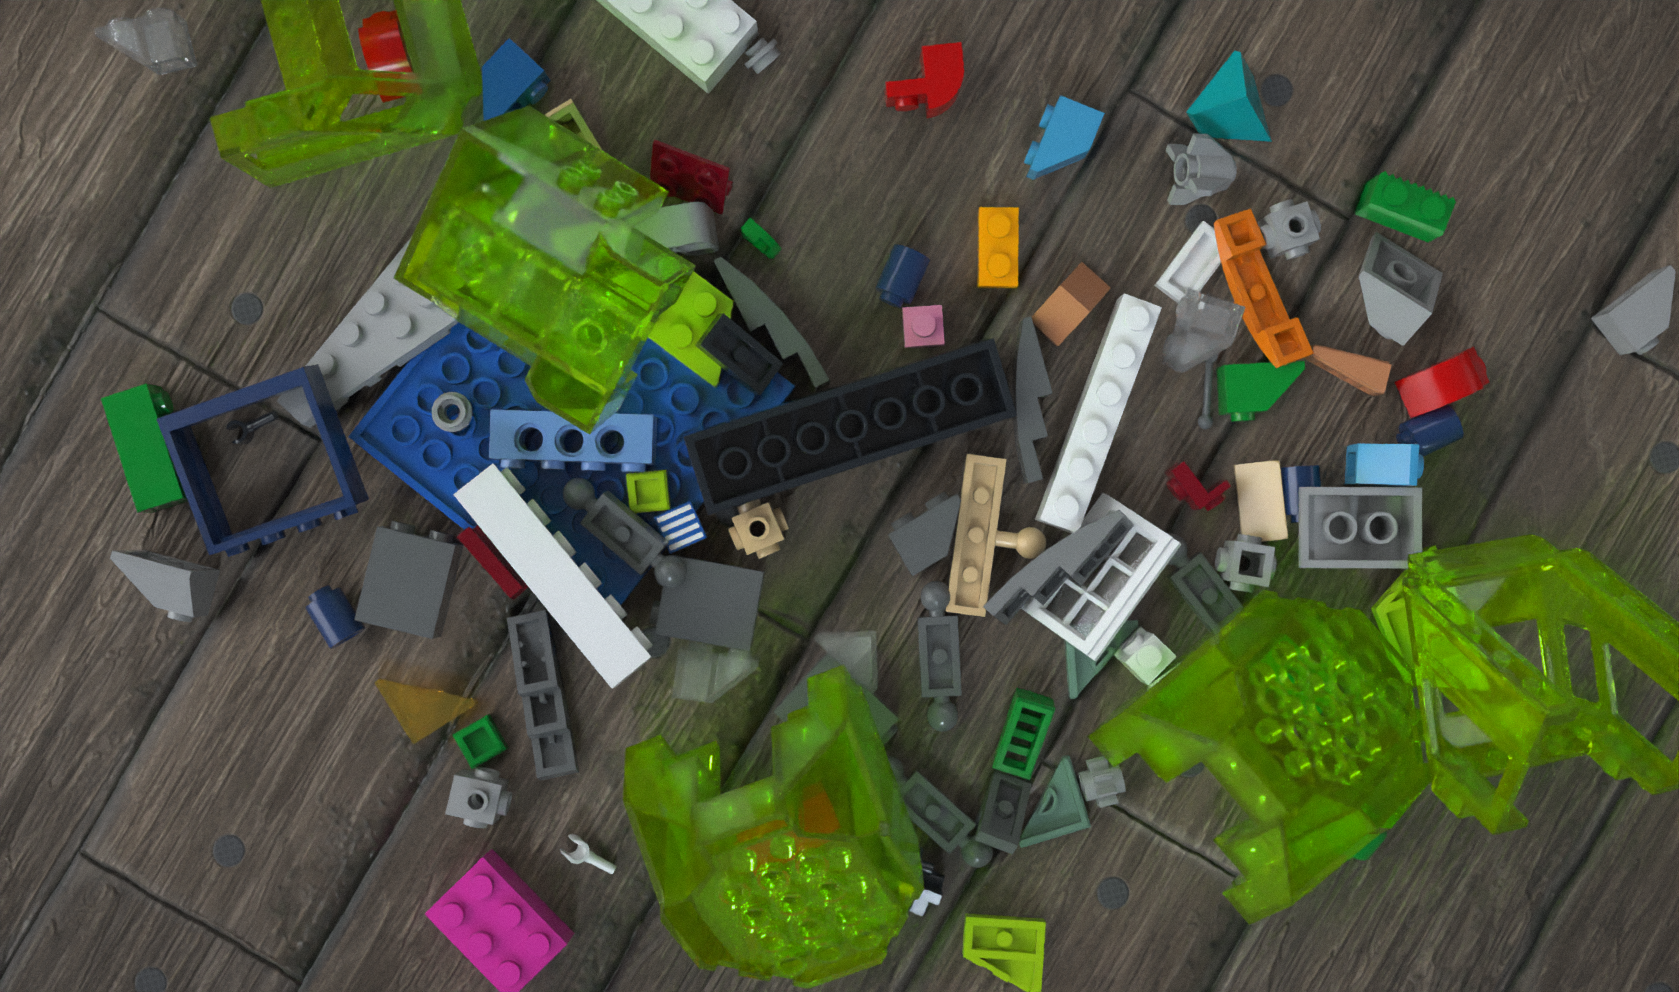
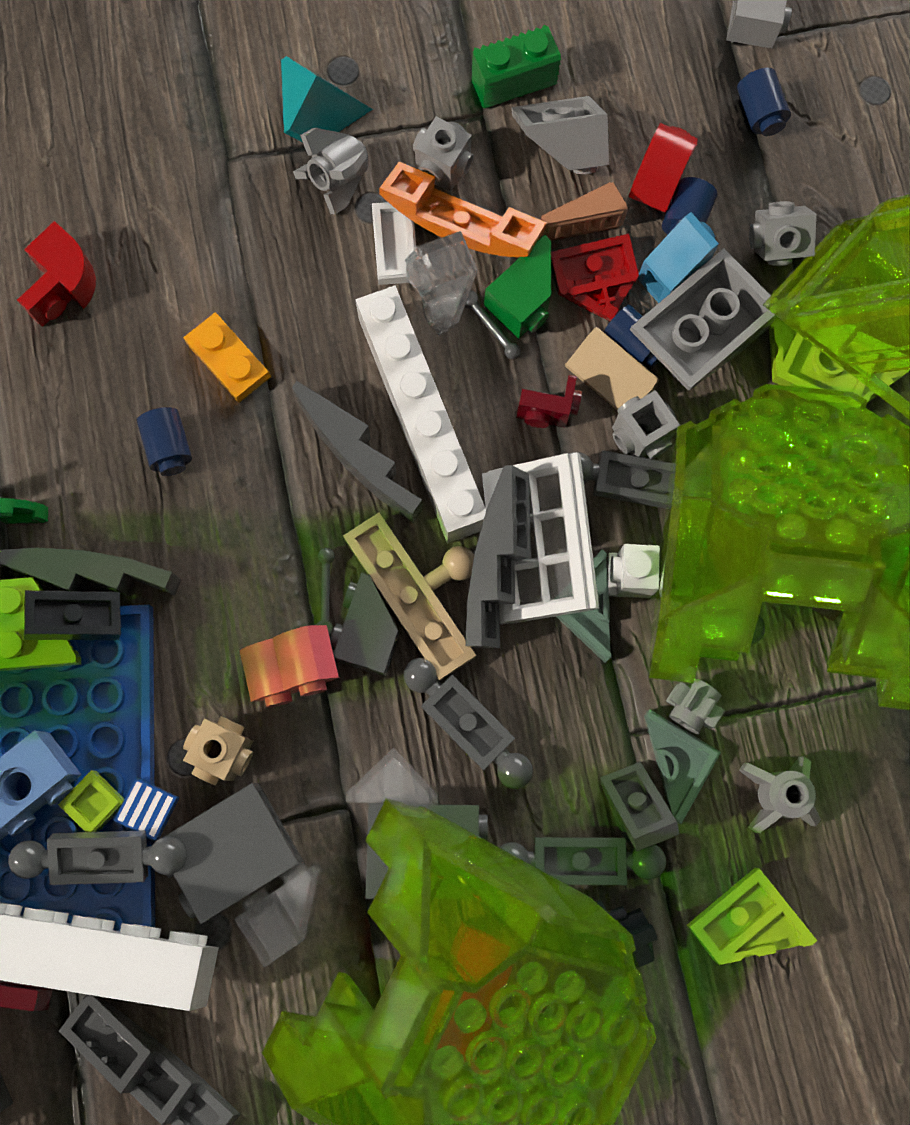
camera: 45 degrees left, 10 degrees down
(849, 425) = (215, 598): black brick -> none
(855, 513) = (289, 664): none -> coral brick
(898, 504) = (326, 557): none -> dark grey hinge
(923, 326) = (219, 468): bright pink plate -> none
(1034, 702) = (602, 702): green slope -> none
(1066, 138) = (207, 229): dark azure slope -> none
(1070, 304) = (322, 352): nougat slope -> none
(1102, 881) = (773, 794): none -> light grey brick
(1318, 418) = (596, 274): none -> red slope
(1481, 510) = (783, 233): none -> light grey brick
(1567, 396) = (764, 101): none -> dark blue brick

